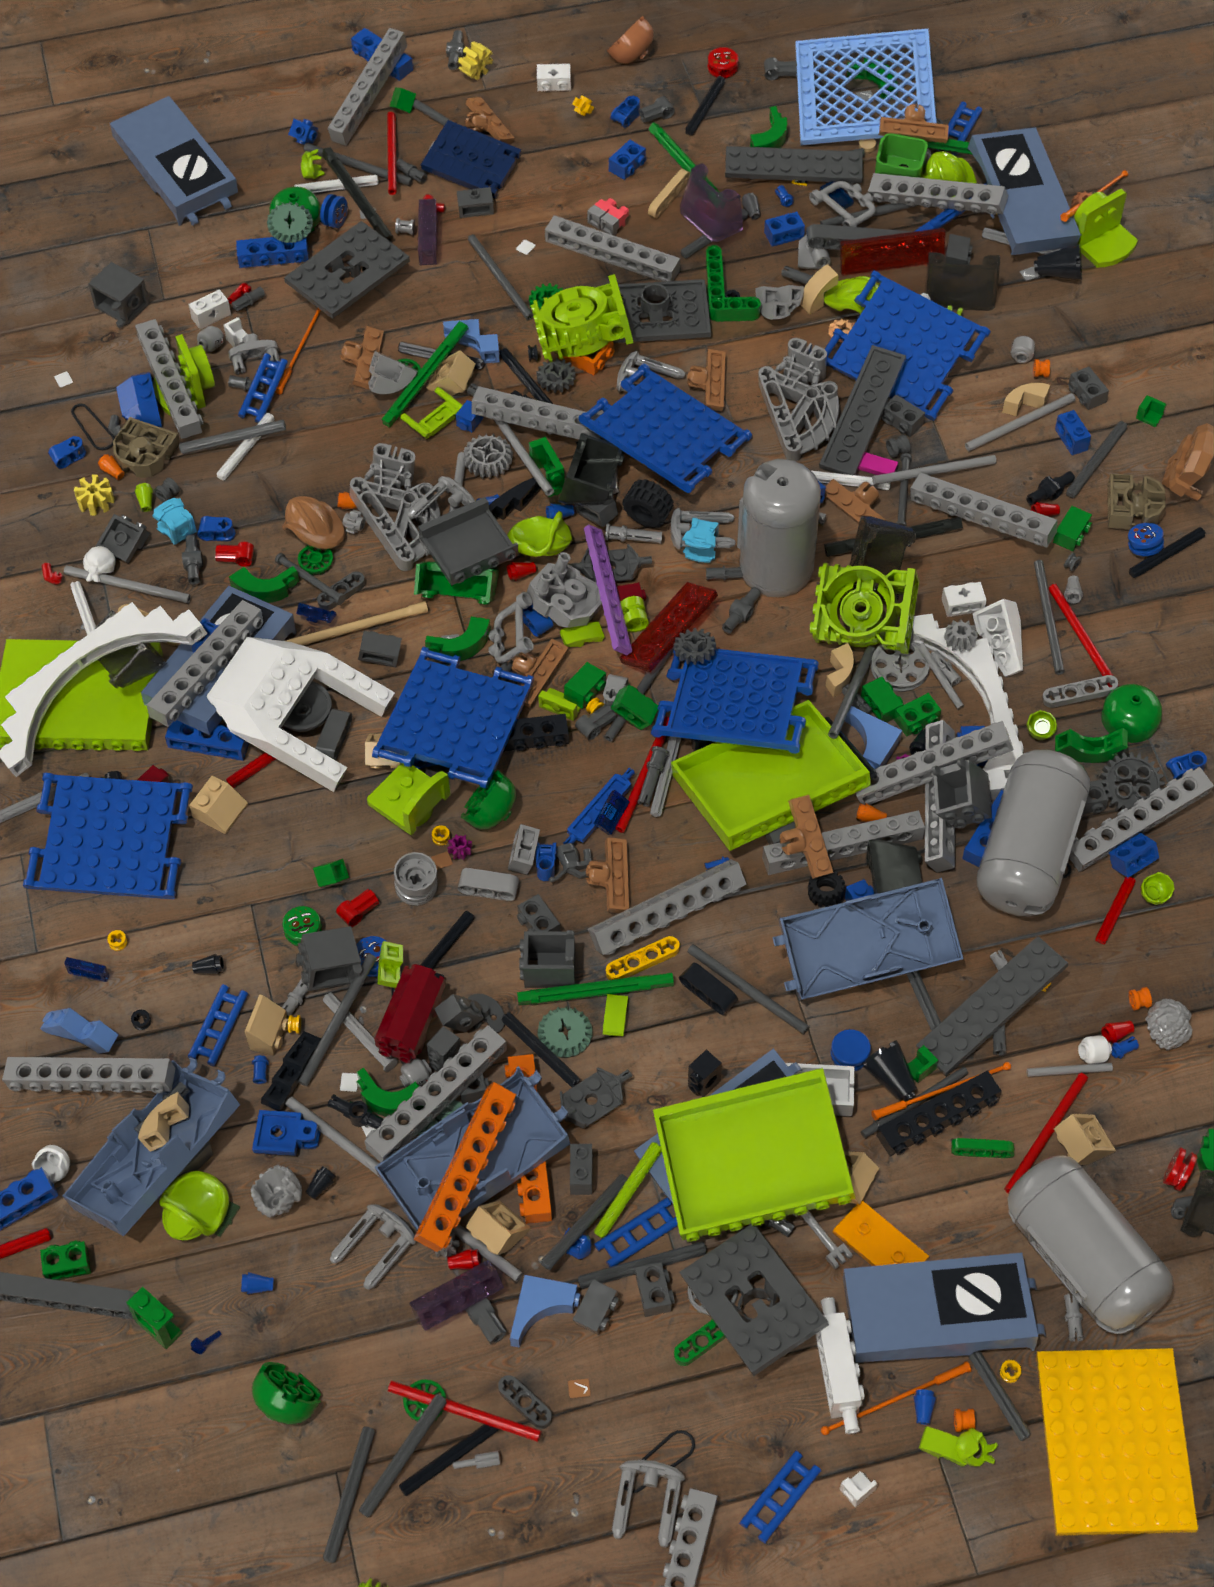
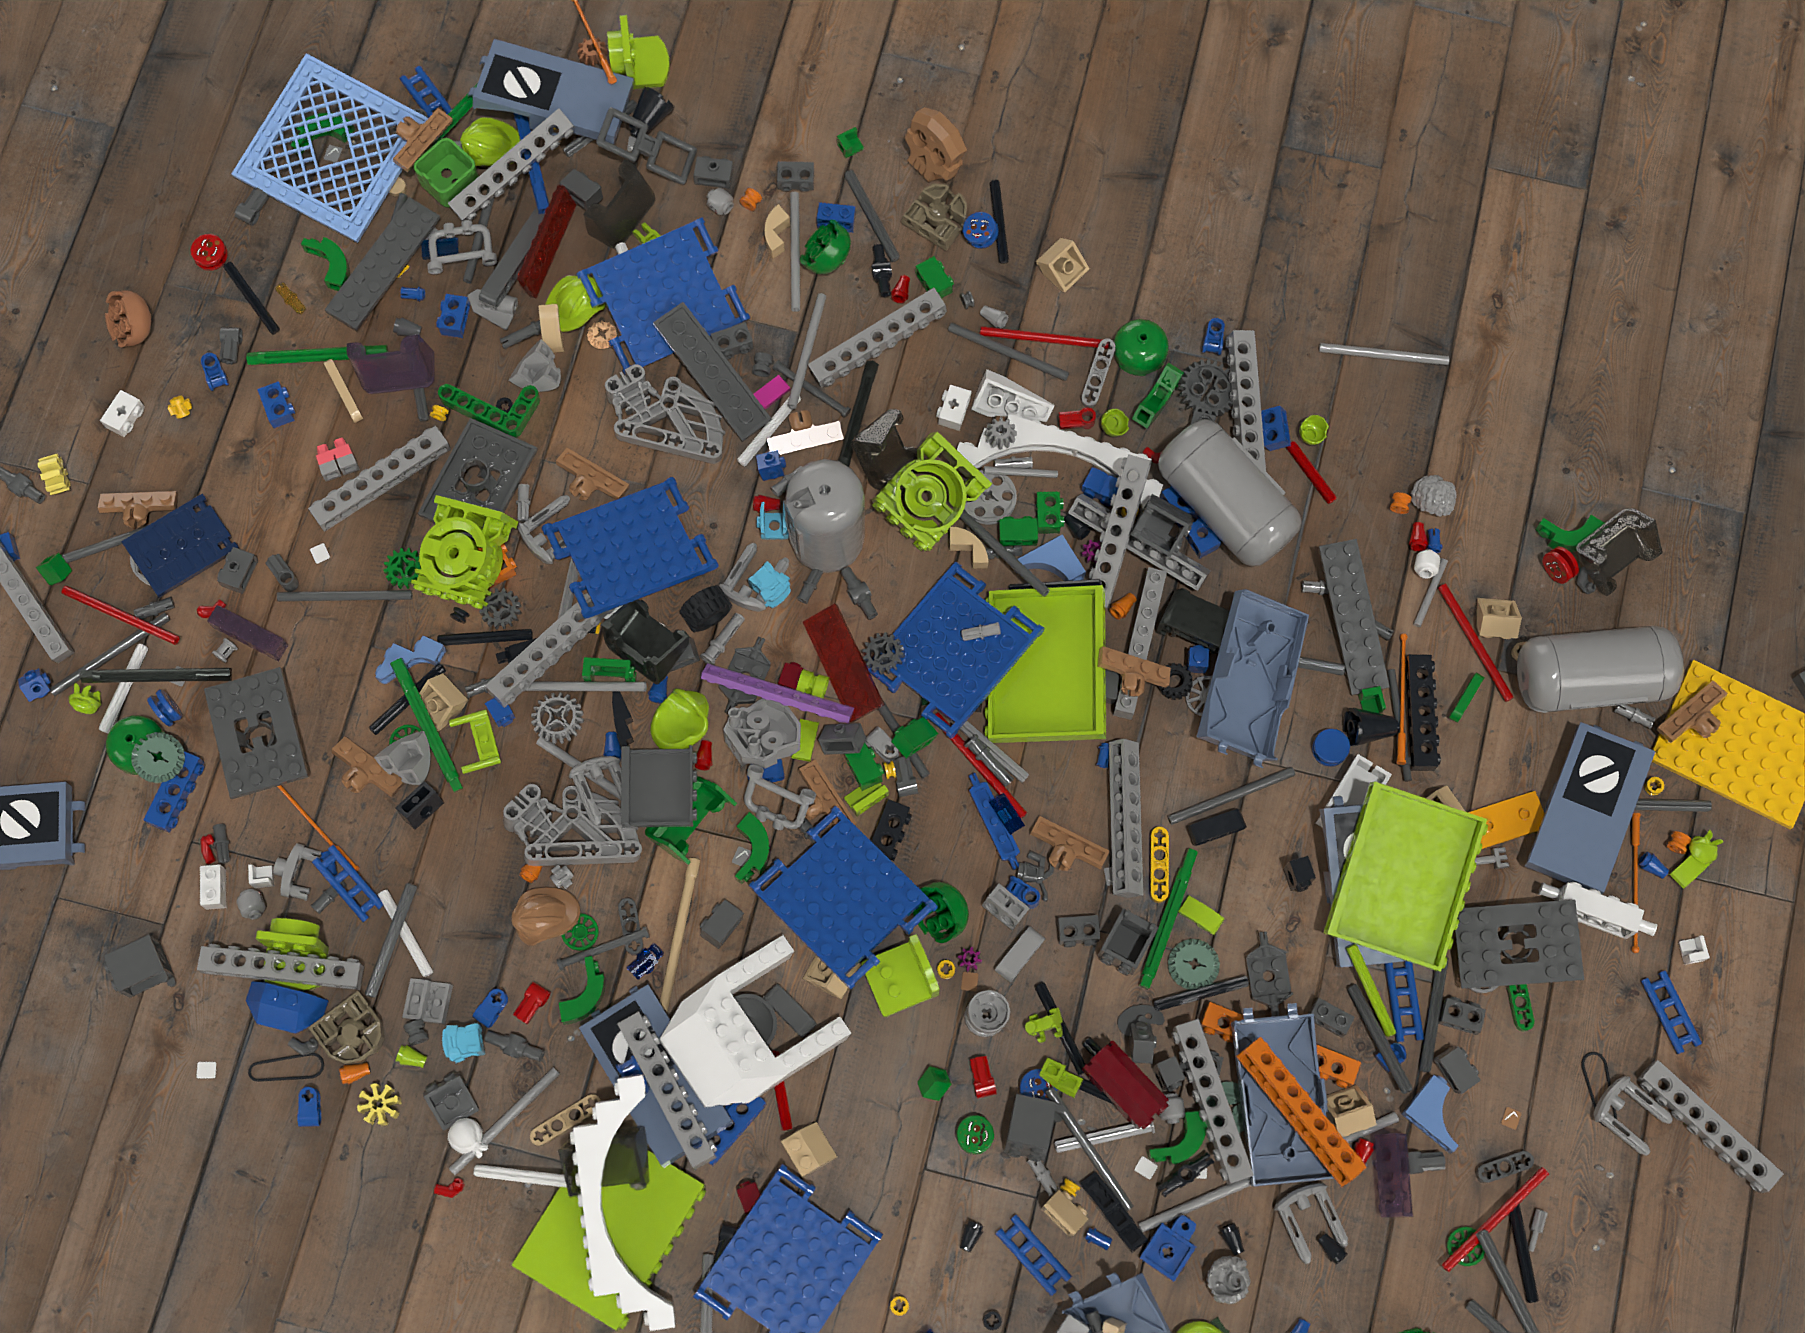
camera: 65 degrees left, 15 degrees up
(197, 487) = (427, 1001): none -> light grey slope
(355, 1278) = (1333, 1249): none -> black cone
(363, 397) = (419, 805): none -> black brick
(433, 931) = (1044, 1024): none -> lime piece
(491, 229) = (282, 572): none -> dark grey piece
(597, 654) = (842, 738): none -> dark grey brick
(658, 348) = (523, 502): none -> light grey axle
(694, 259) = (439, 413): none -> yellow bush
(722, 127) = (290, 298): none -> clear yellow axle
(762, 703) = (981, 631): none -> light grey axle
(1023, 696) = (1075, 419): none -> red piece
(1028, 273) = (646, 145): none -> dark grey bar
(1037, 439) = (831, 257): none -> green cylinder
(1045, 332) = (713, 172): none -> dark grey brick
(1110, 1368) = (1695, 714): none -> medium nougat plate
(1163, 617) = (1063, 264): none -> tan slope

